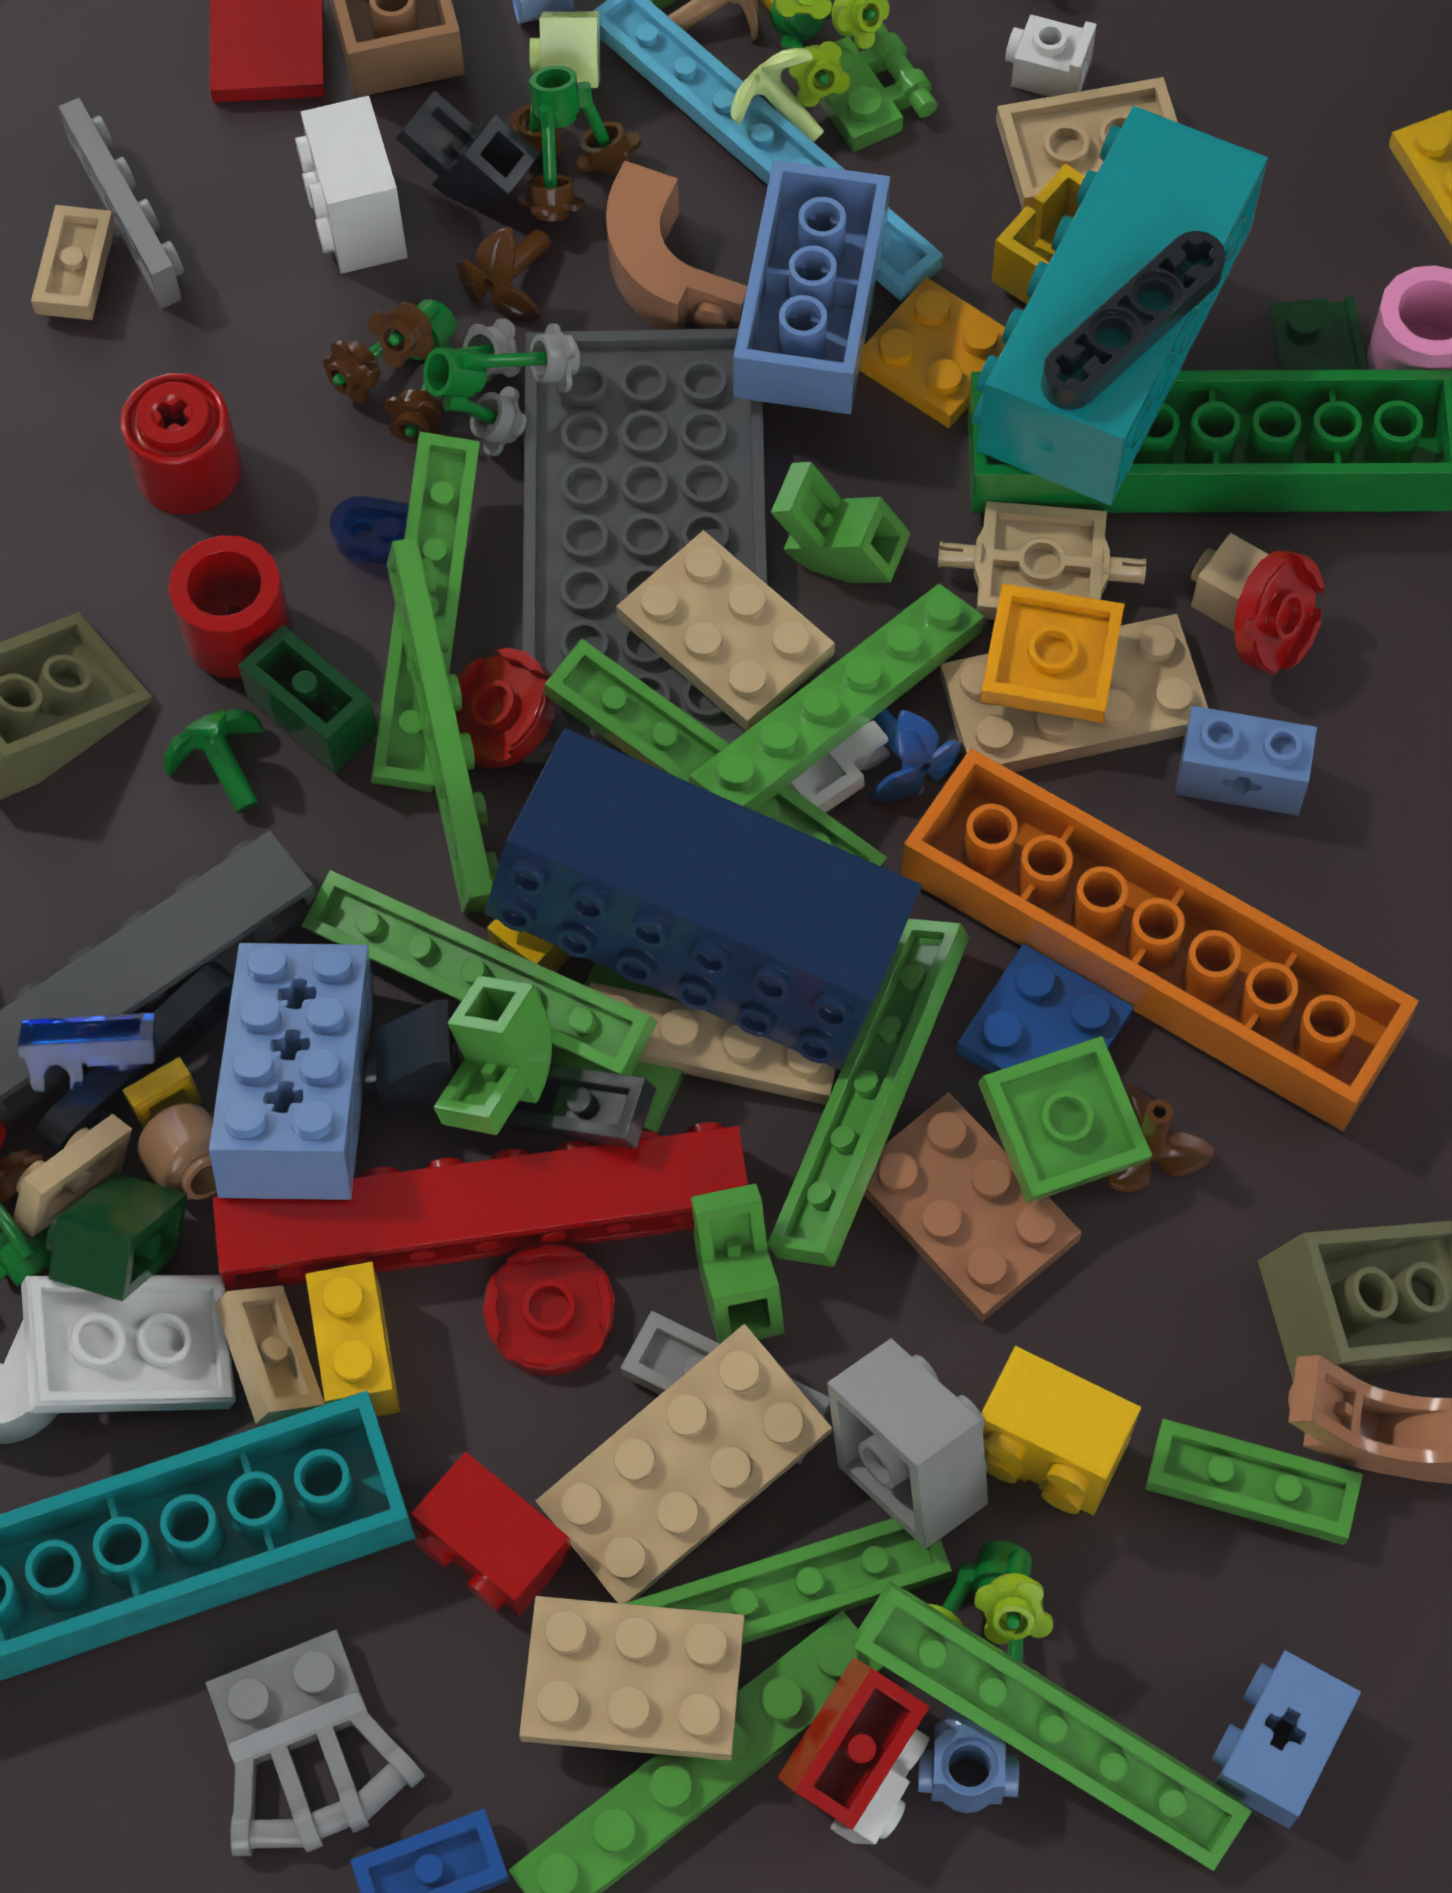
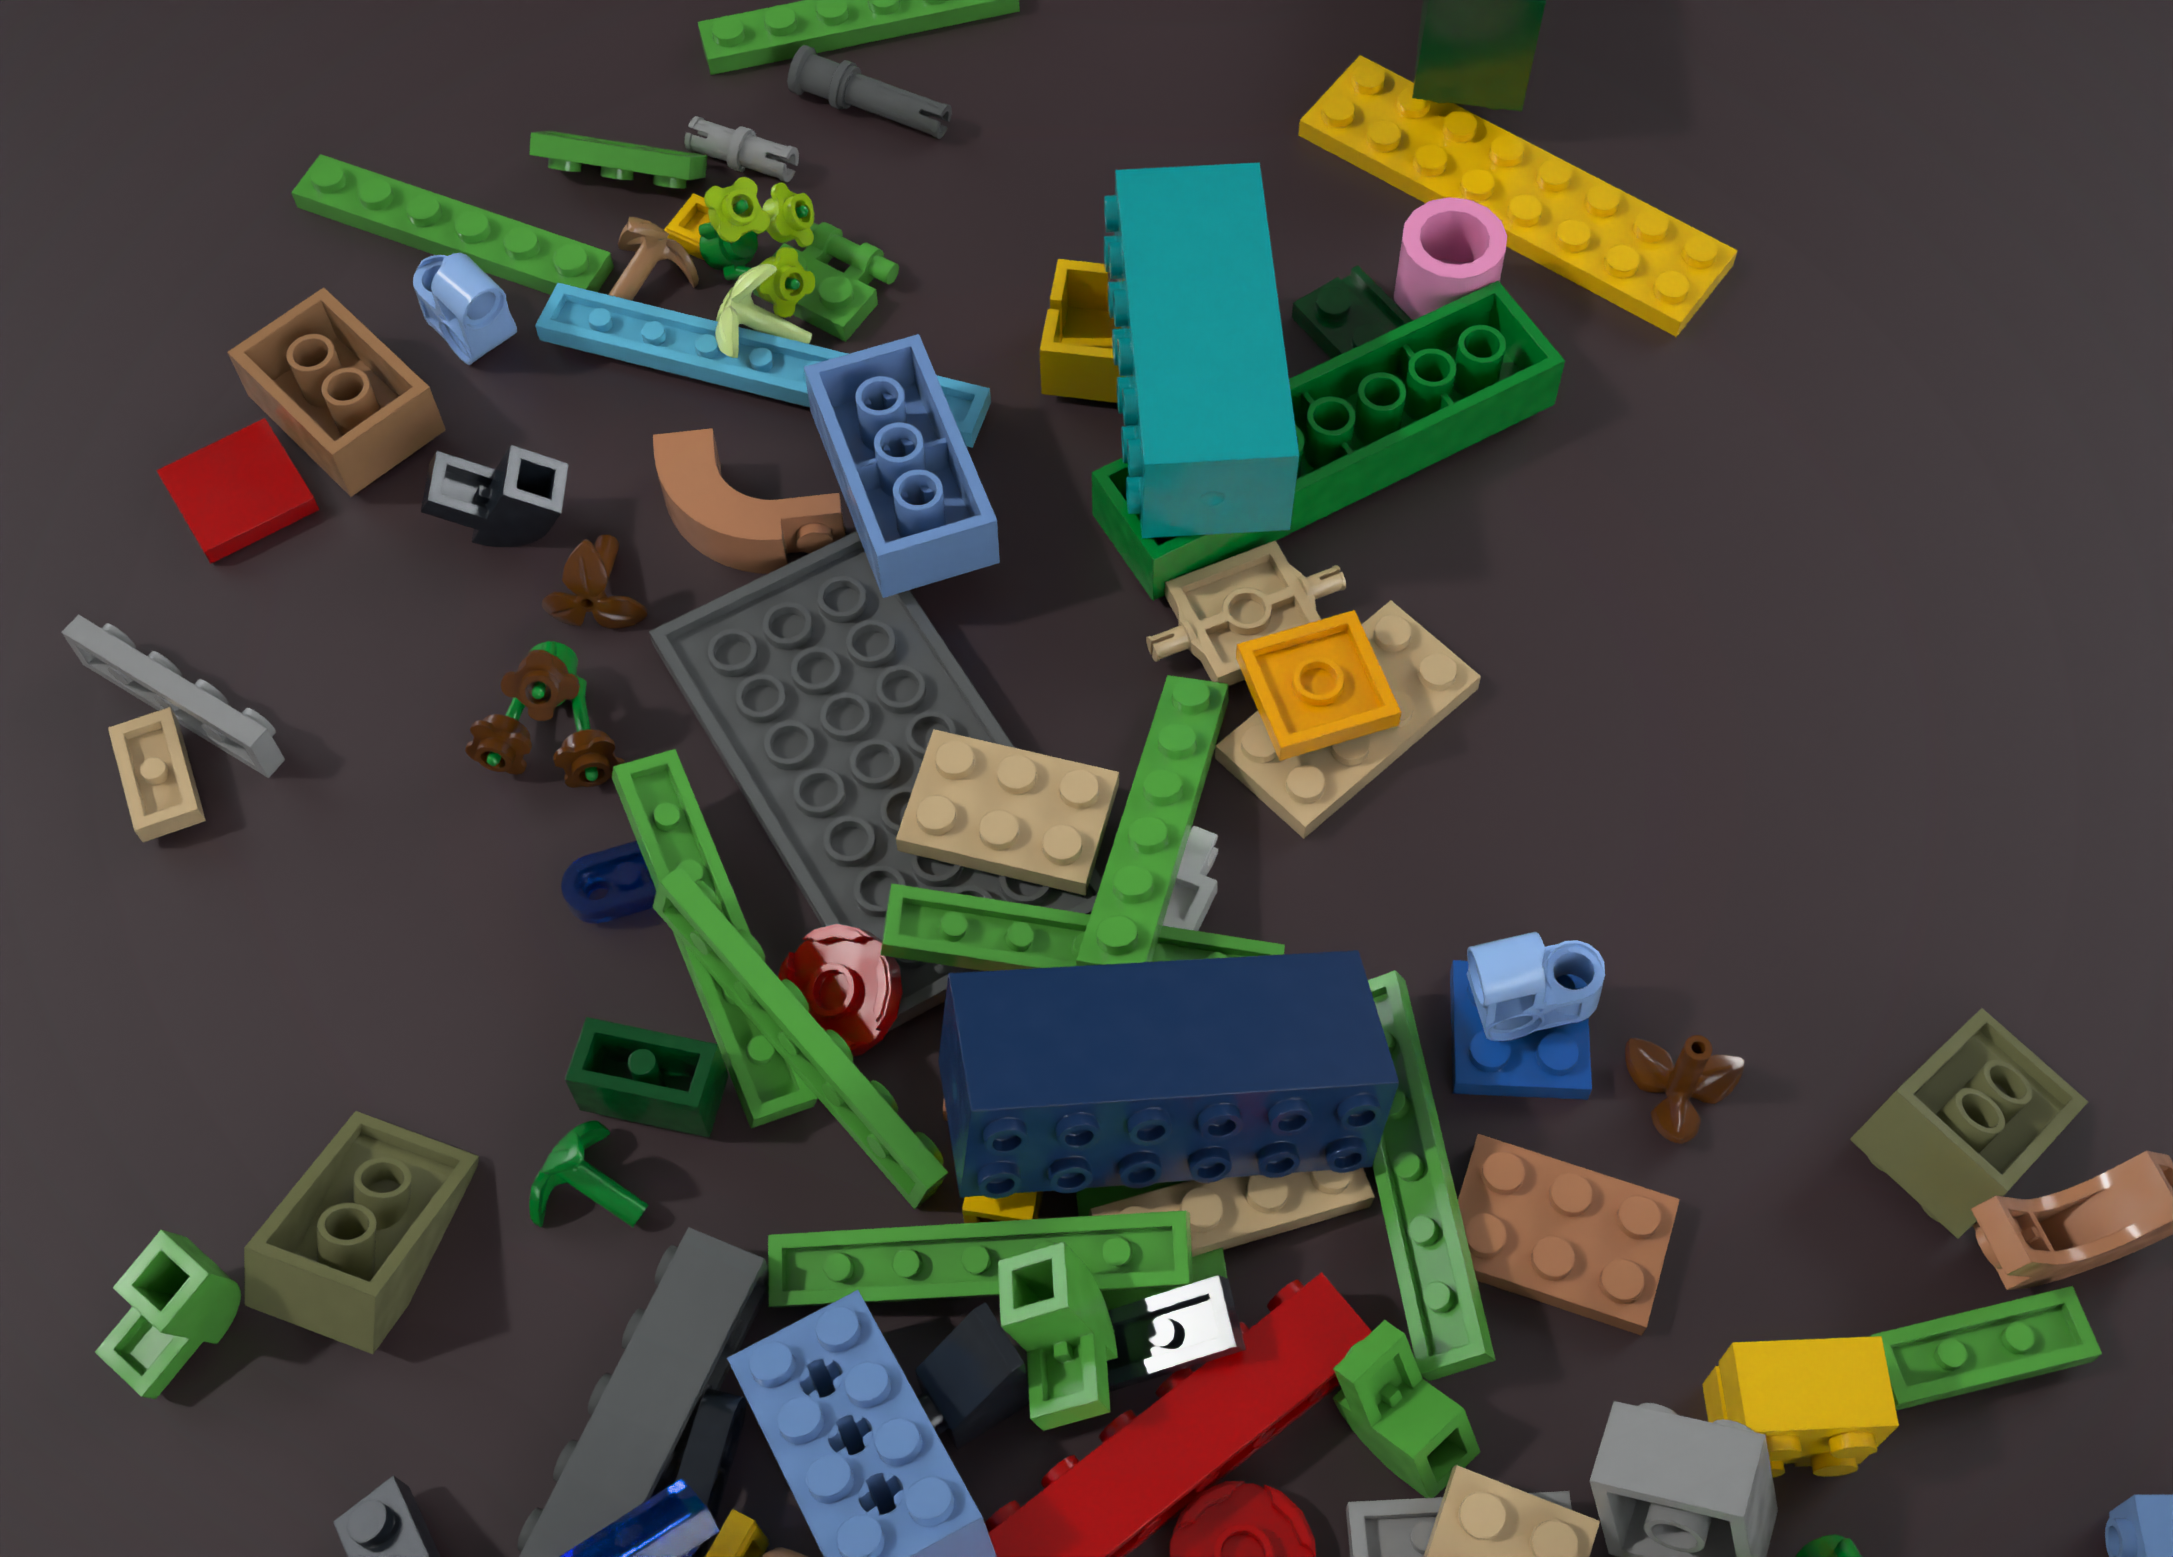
camera: 30 degrees left, 5 degrees down
(180, 443) = (371, 893): red piece -> none
(227, 601) = (499, 1003): red piece -> none
(351, 185) = (404, 572): white brick -> none
(491, 352) = (625, 665): plant -> none
(553, 106) = (558, 413): plant -> none
(568, 41) = (538, 365): yellowish green brick -> none
(838, 536) = (1054, 675): bright green brick -> none
(915, 744) = (1250, 832): blue plant -> none
(931, 350) = (1037, 473): light orange plate -> none
(1047, 990) = (1519, 989): none -> light blue piece
(1050, 56) = (974, 183): white brick -> none
(1064, 1119) = (1607, 1102): bright green plate -> none
(1070, 130) = (1022, 244): tan plate -> none
(1140, 324) = (1241, 347): black beam -> none
(1158, 938) = (1633, 889): orange brick -> none
(1222, 577) = (1429, 550): tan brick -> none
(1246, 760) = (1537, 696): medium blue brick -> none
(1278, 612) = (1483, 555): red tile -> none

